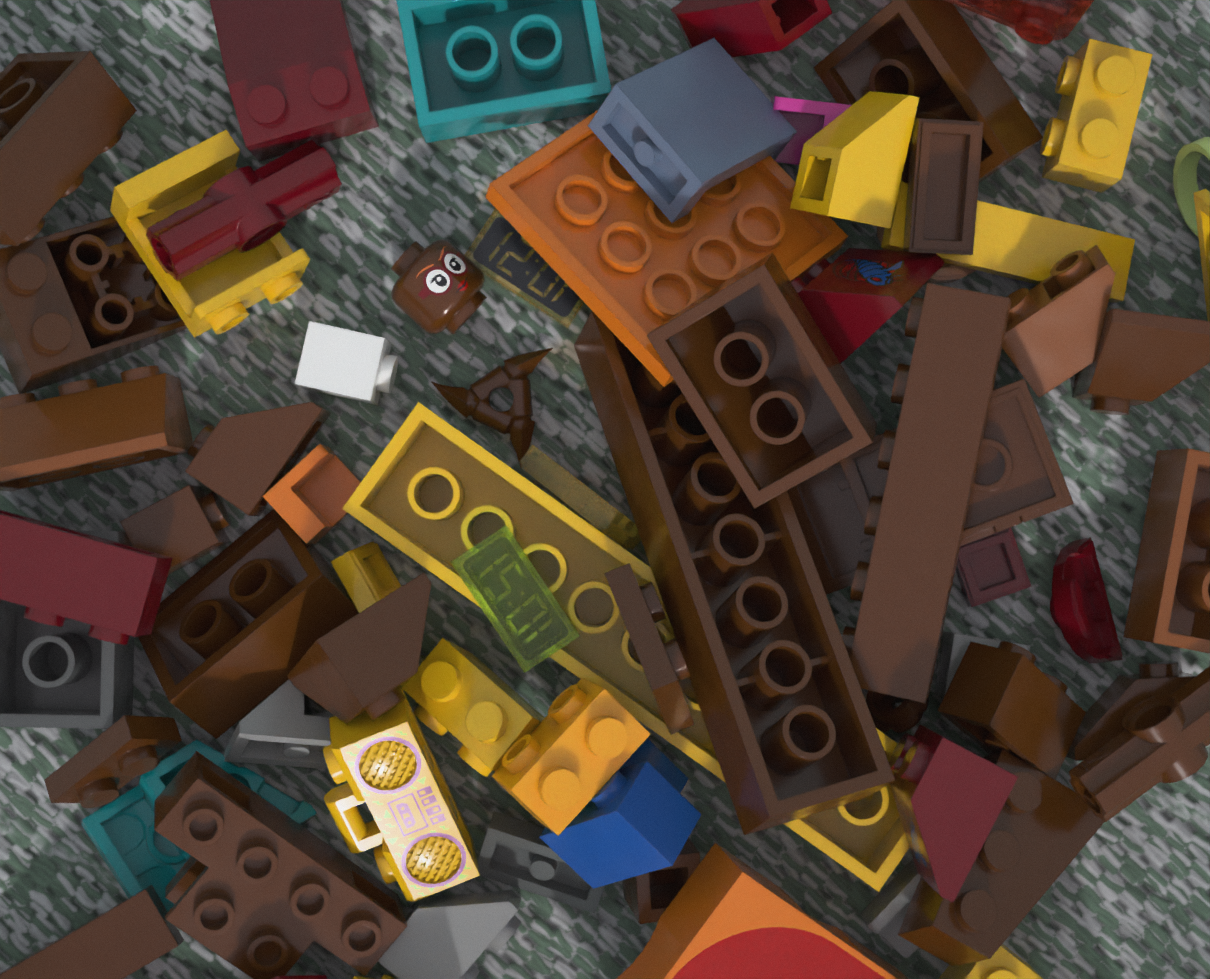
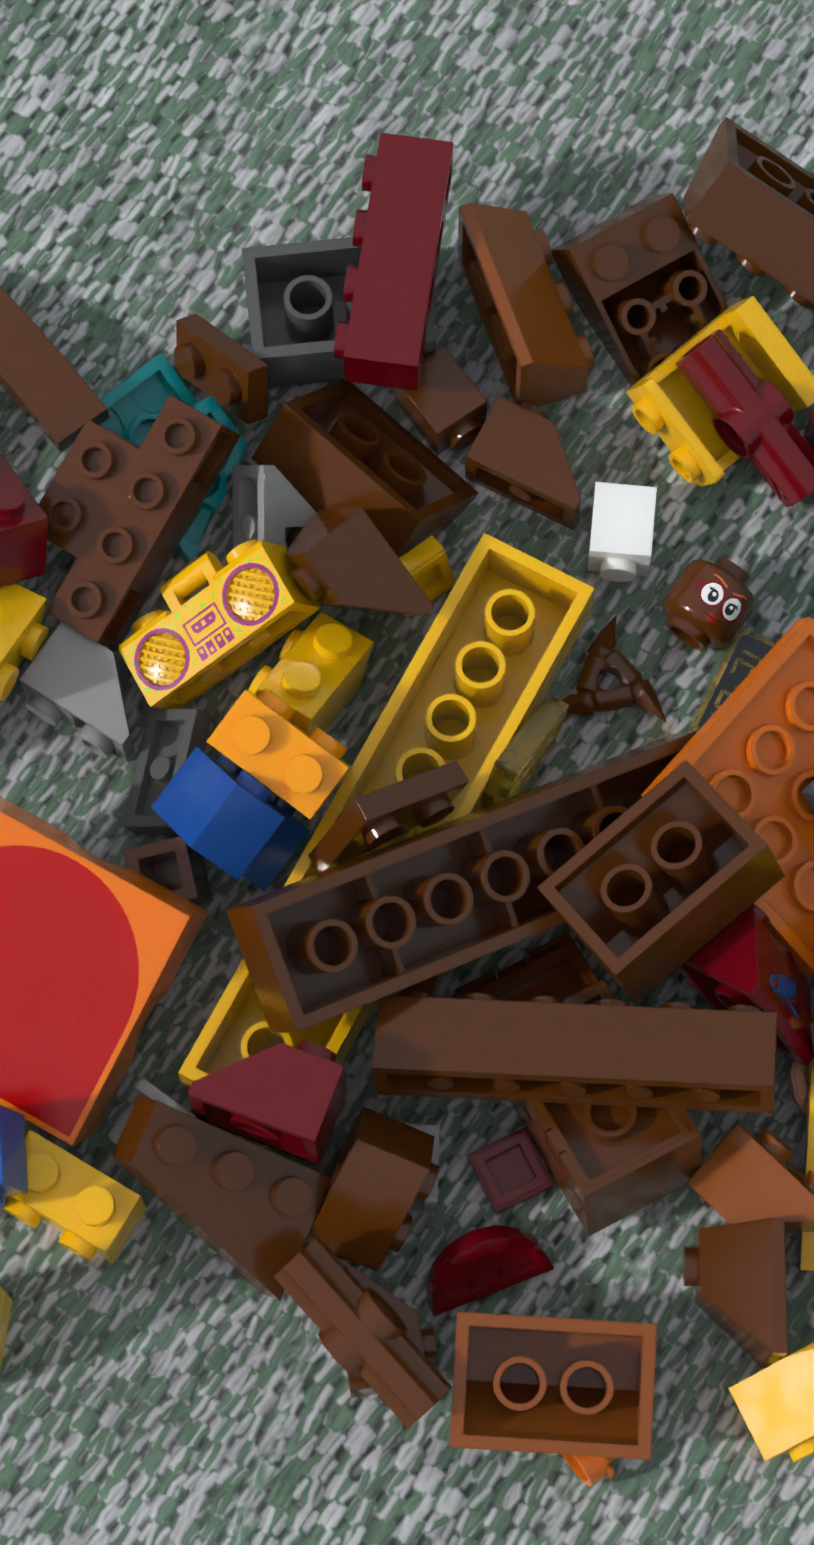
camera: 85 degrees right, 15 degrees down
(313, 494) = (493, 509): orange panel -> none
(515, 598) = (420, 695): clear neon green tile -> none
(894, 712) = (362, 1090): reddish brown plate -> none

